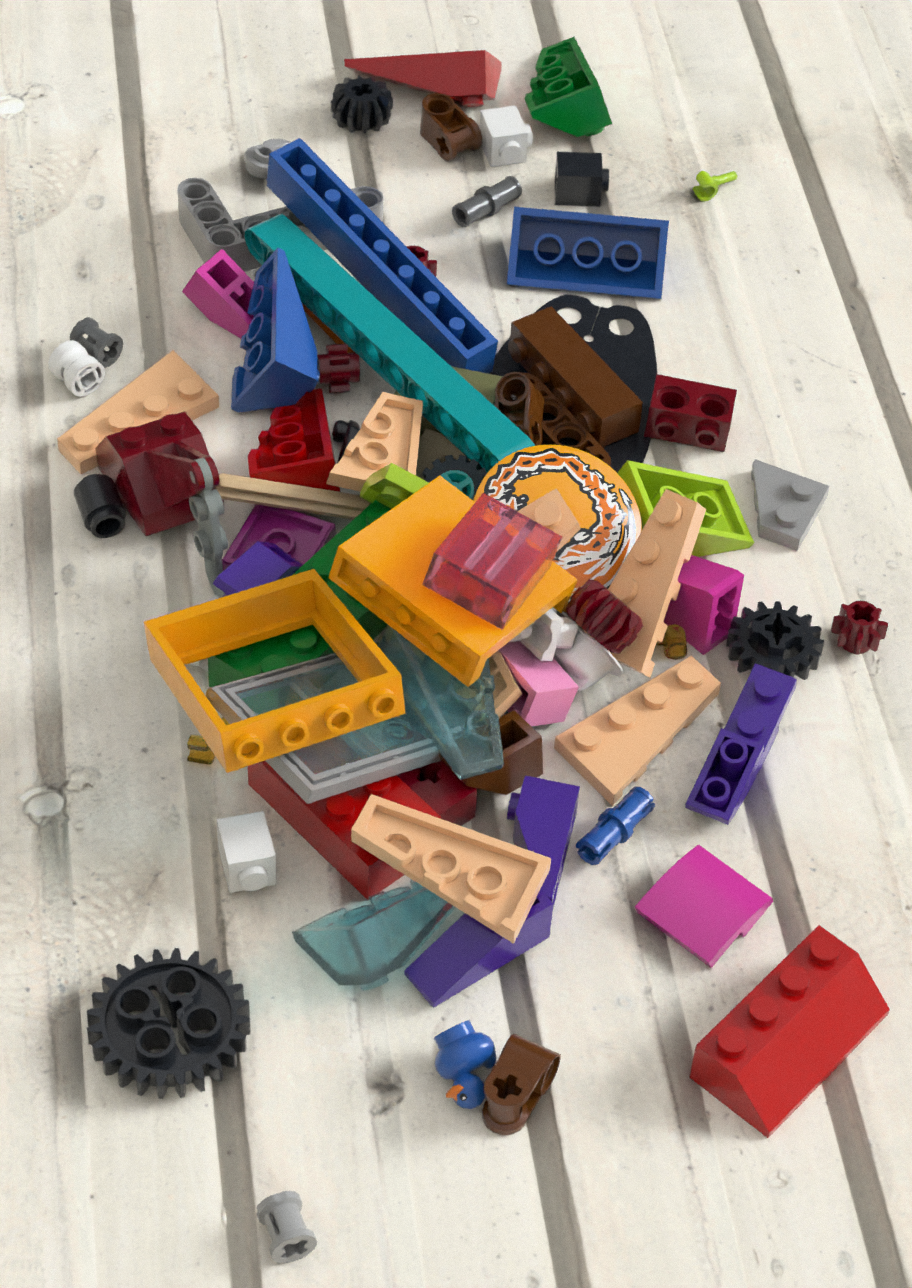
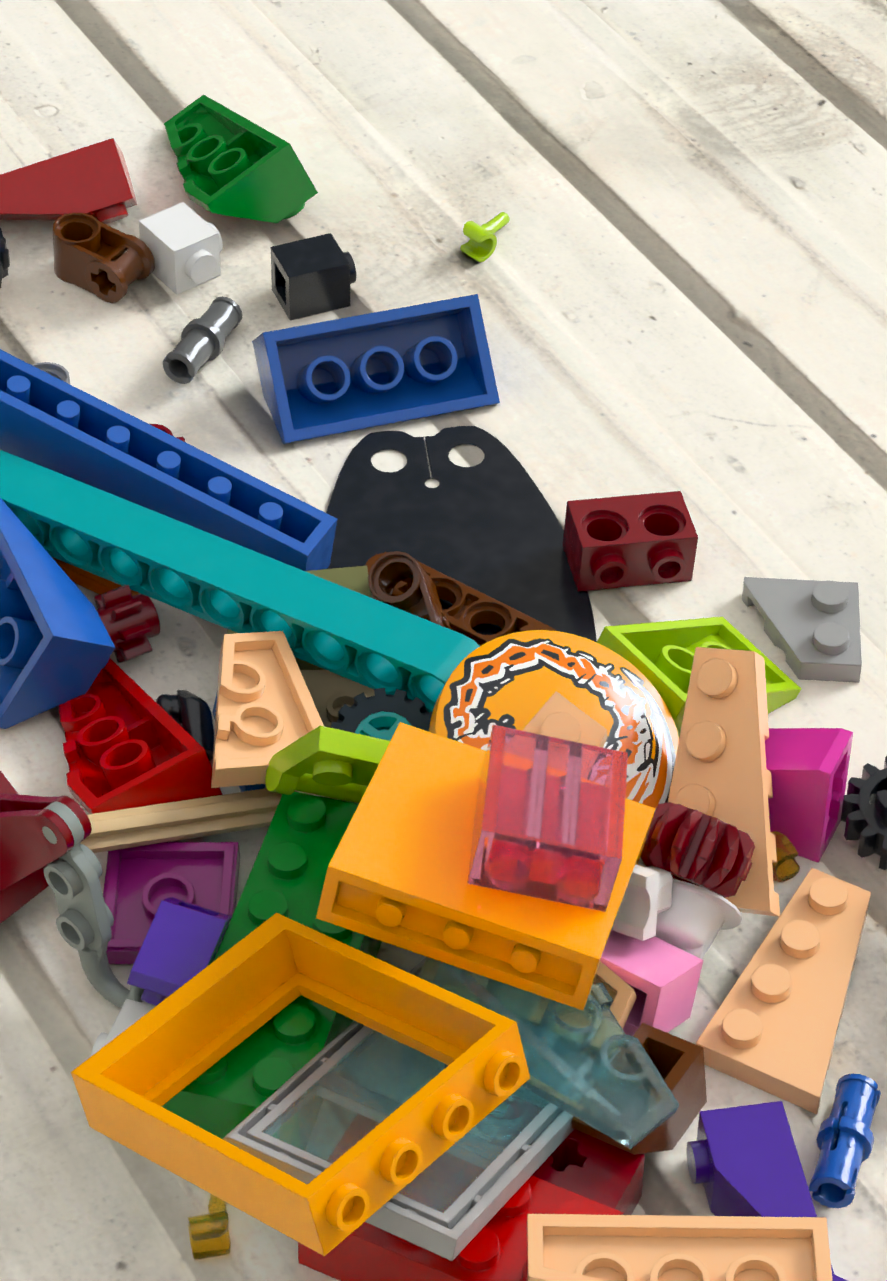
camera: 20 degrees left, 5 degrees down
(575, 375) = (470, 541): reddish brown brick -> none

